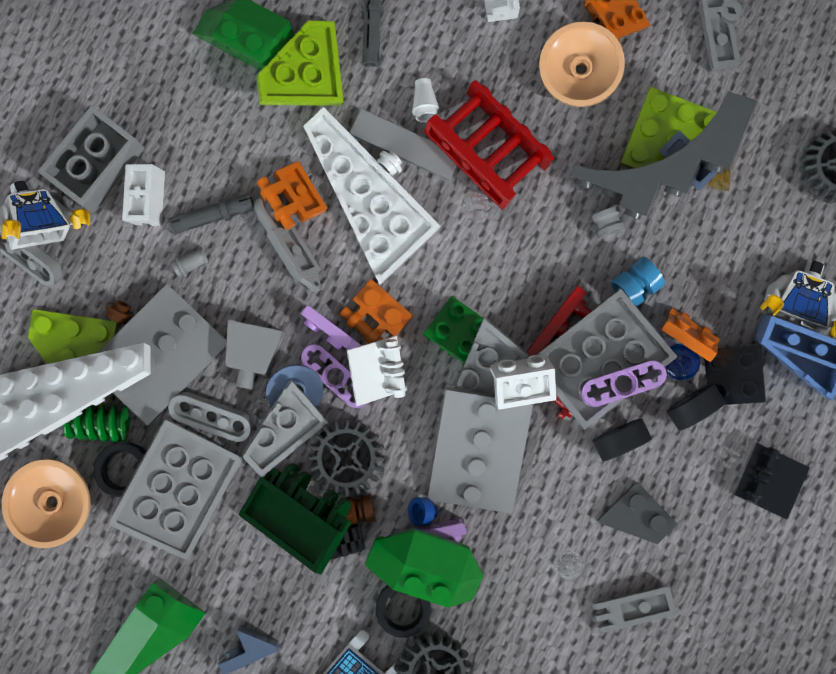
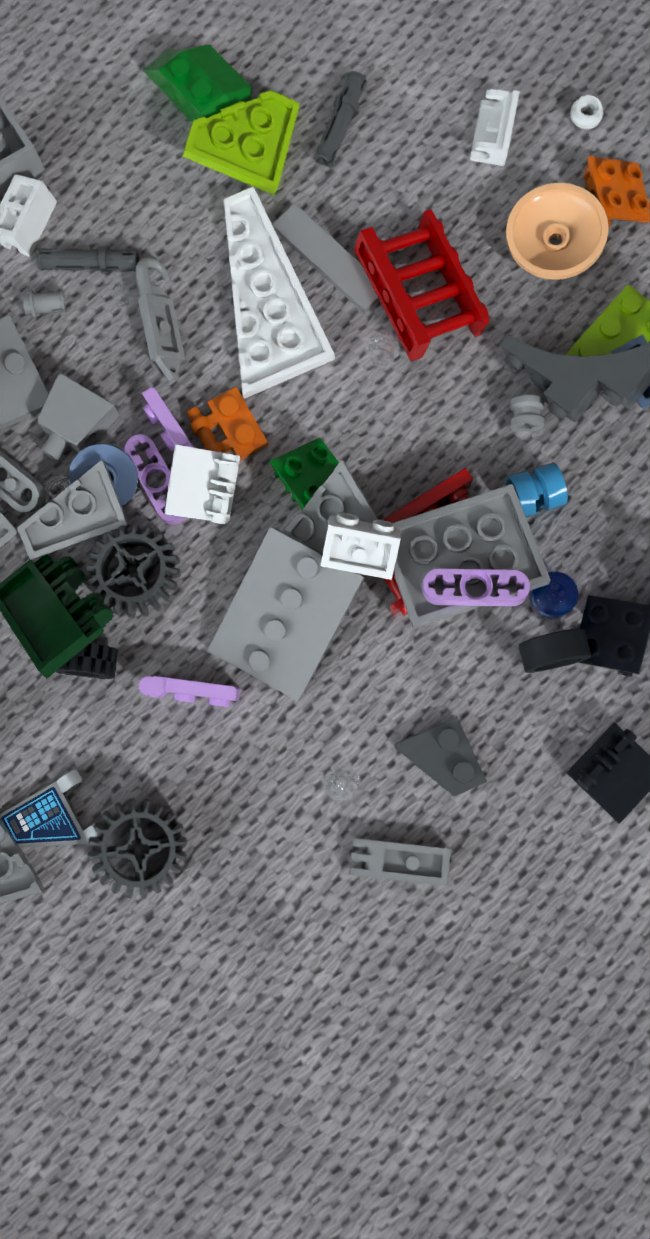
camera: 25 degrees right, 5 degrees down
(299, 192) = (192, 267): orange plate -> none
(365, 508) = (125, 634): reddish brown wheel -> none
(390, 162) = (304, 269): white plate -> none
(399, 630) = (107, 751): black tyre -> none
(422, 511) = (195, 661): blue tile -> none
(424, 101) = (367, 214): white cone -> none
(426, 566) = (176, 721): green wedge -> none
(622, 439) = (454, 657): black tyre -> none
(691, 334) = (577, 566): orange plate -> none

